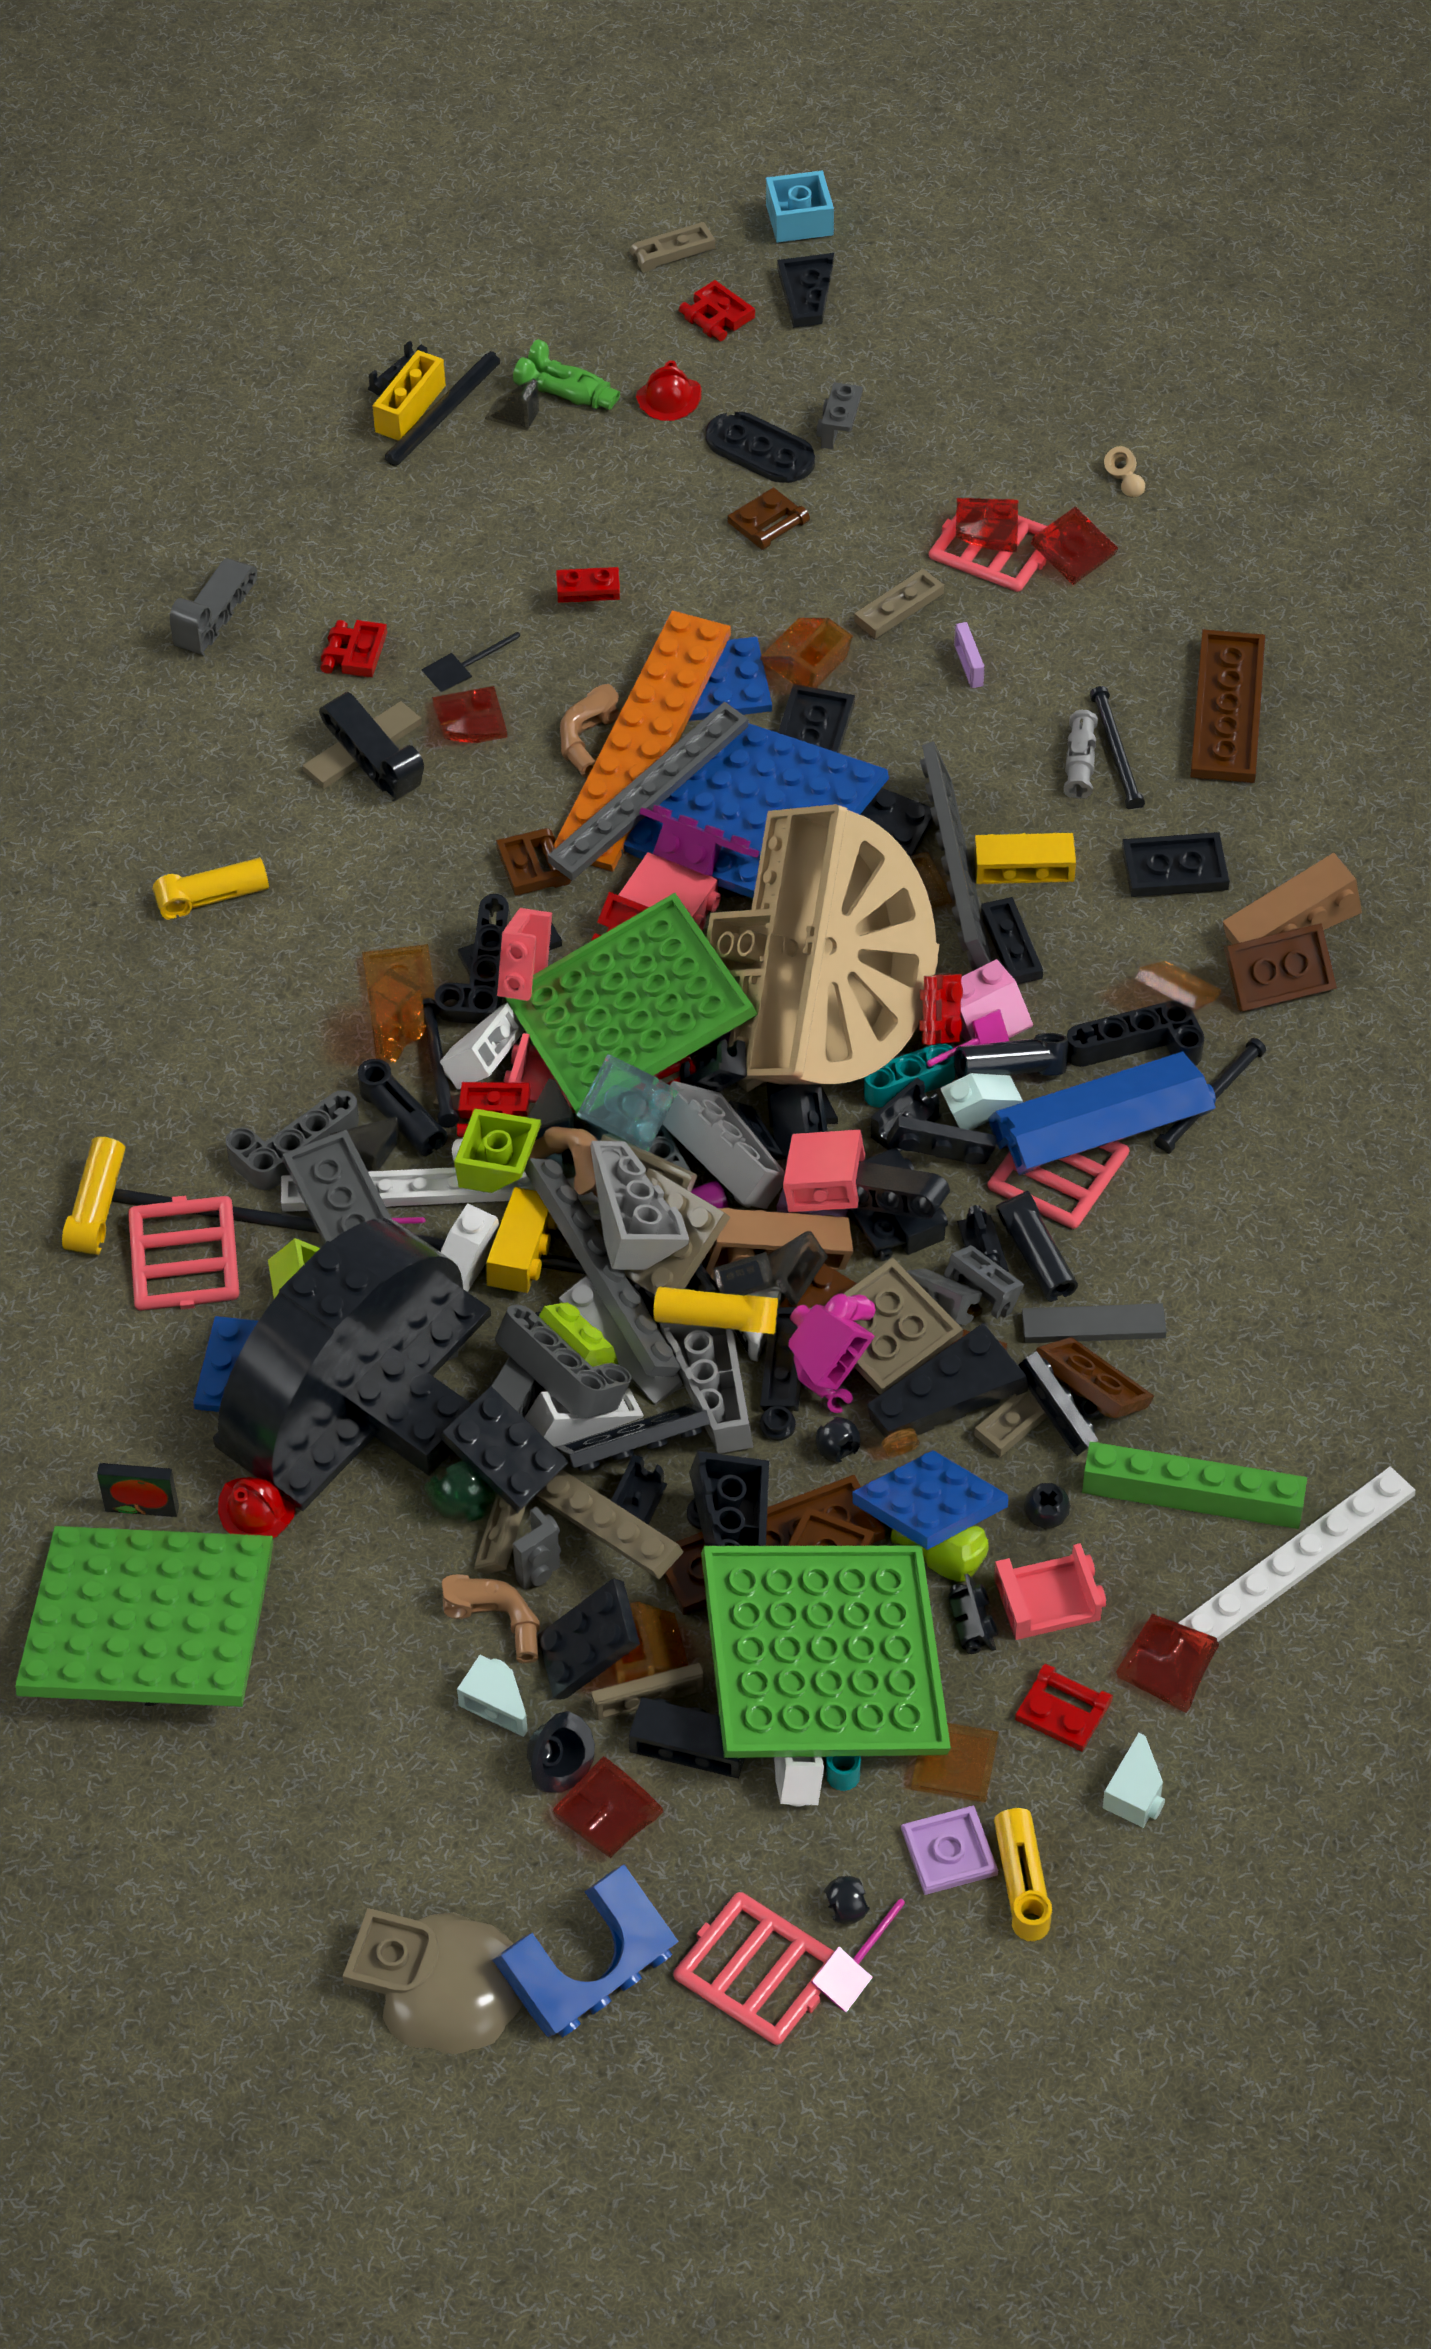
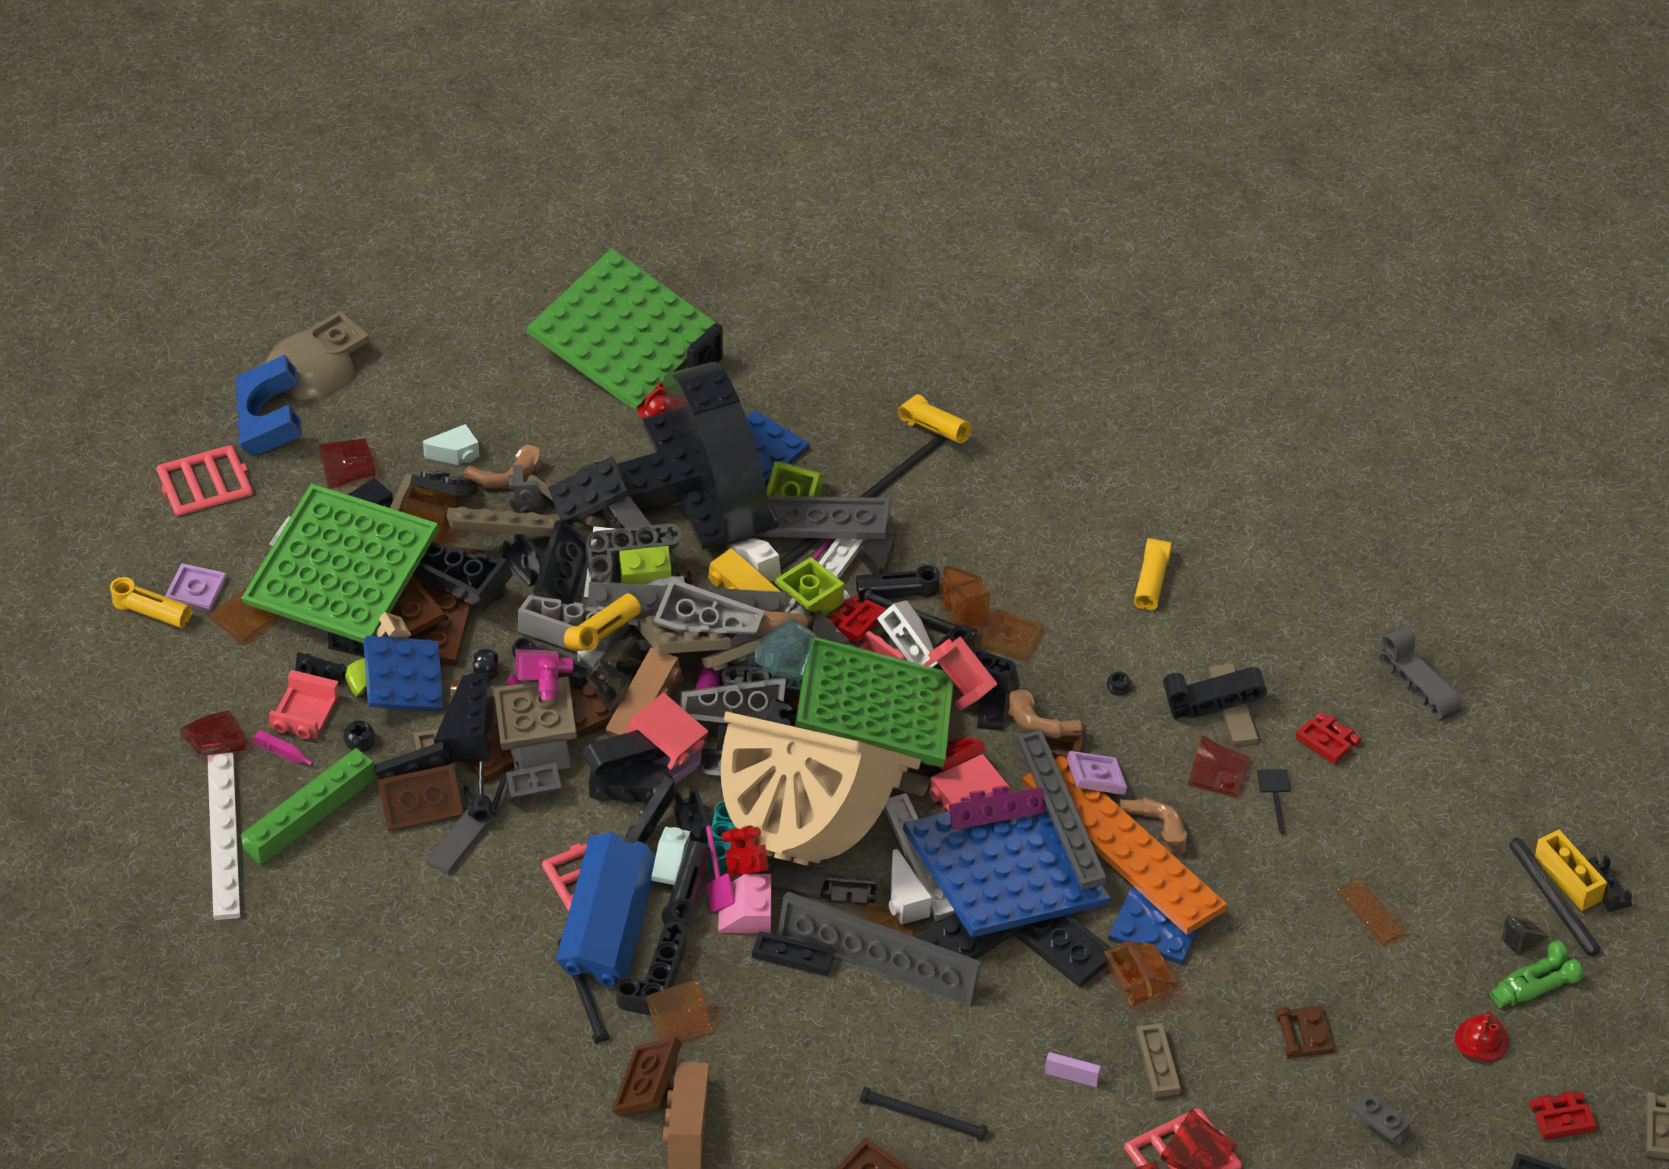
camera: 120 degrees right, 5 degrees down
(140, 1242) = (866, 427): coral bar -> none
(263, 1161) = (905, 507): dark grey beam -> none
(404, 848) = (1118, 683): none -> black plate
(536, 881) = (1023, 712): none -> medium nougat piece
(560, 1752) = (395, 450): black helmet -> none
(562, 798) = (1096, 772): none -> lavender tile
(572, 529) = (1370, 912): none -> clear orange tile
(588, 584) = (1293, 878): red bracket -> none
(760, 447) = (1388, 1067): black tile -> none
(842, 1976) = (164, 509): piece -> none
(847, 1899) = (204, 526): black piece -> none
(883, 1530) = (392, 627): none -> tan tile
(981, 1234) = (565, 809): black hinge -> none
(1024, 858) = (858, 996): yellow brick -> none
(1037, 1246) = (558, 831): black piece -> none
(1055, 1310) = (482, 807): none -> black plant
(1059, 1718) = (228, 673): red plate -> none
(1080, 754) = (930, 1084): light grey piece -> none
(1127, 1581) = (280, 747): none -> dark pink piece
(1136, 1786) = (153, 677): light aqua slope -> none
(1175, 864) = (789, 1082): black plate -> none

